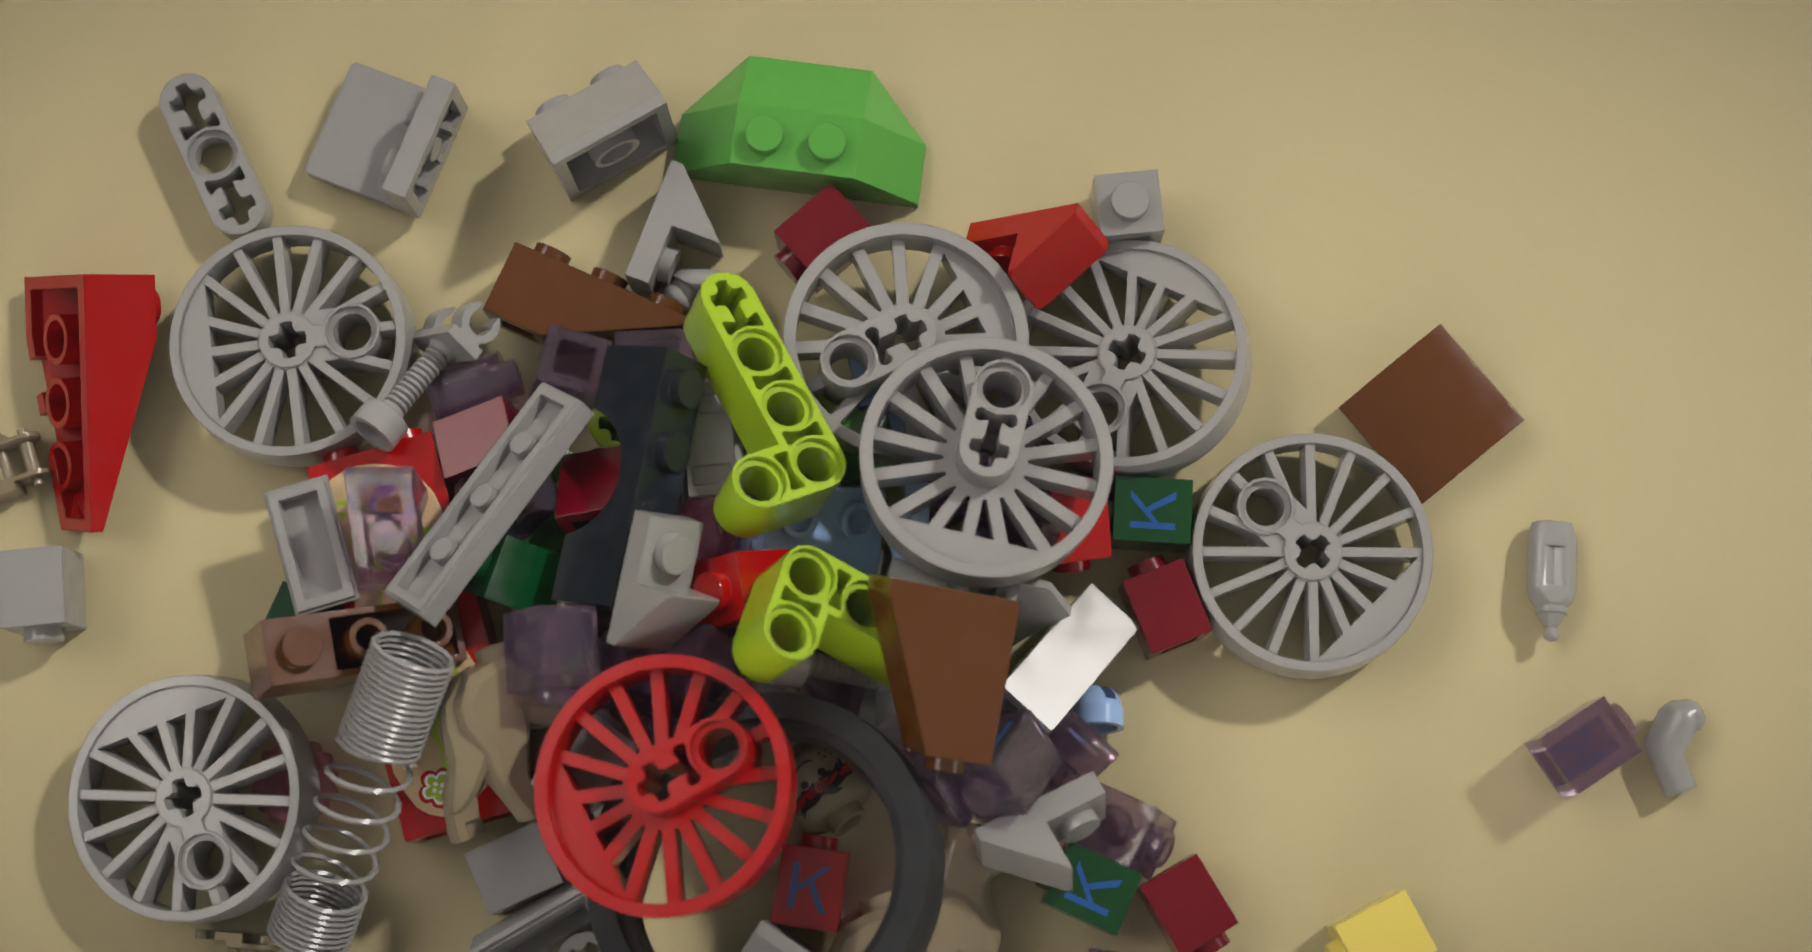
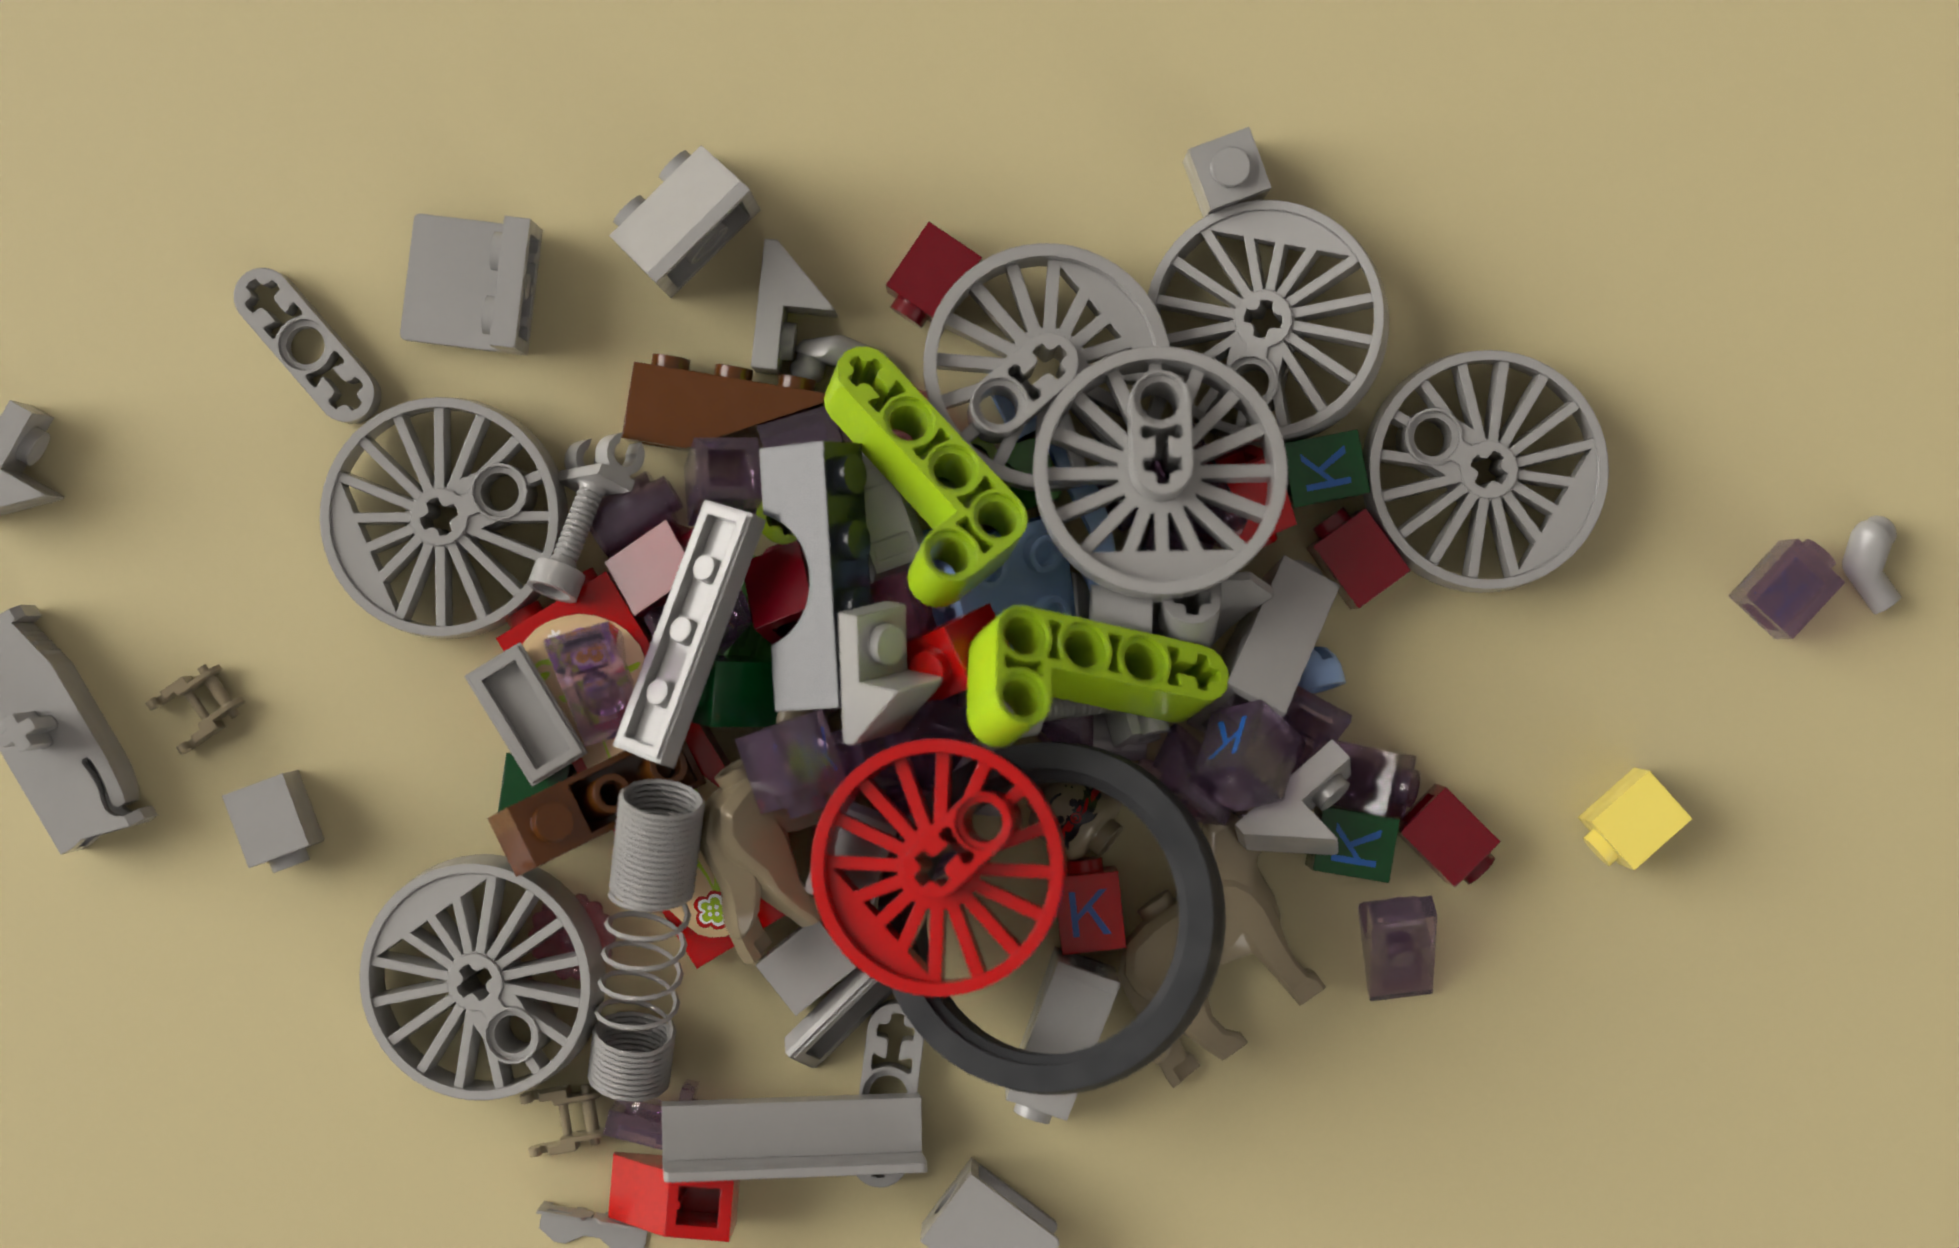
camera: 15 degrees left, 10 degrees up
(95, 358) = (254, 578): red wedge -> none
(802, 129) = (883, 171): bright green wedge -> none
(944, 667) = (1175, 686): reddish brown slope -> none
(1041, 248) = (1153, 238): red slope -> none
(1431, 413) = (1571, 298): reddish brown slope -> none
(1551, 572) = (1720, 425): light grey piece -> none

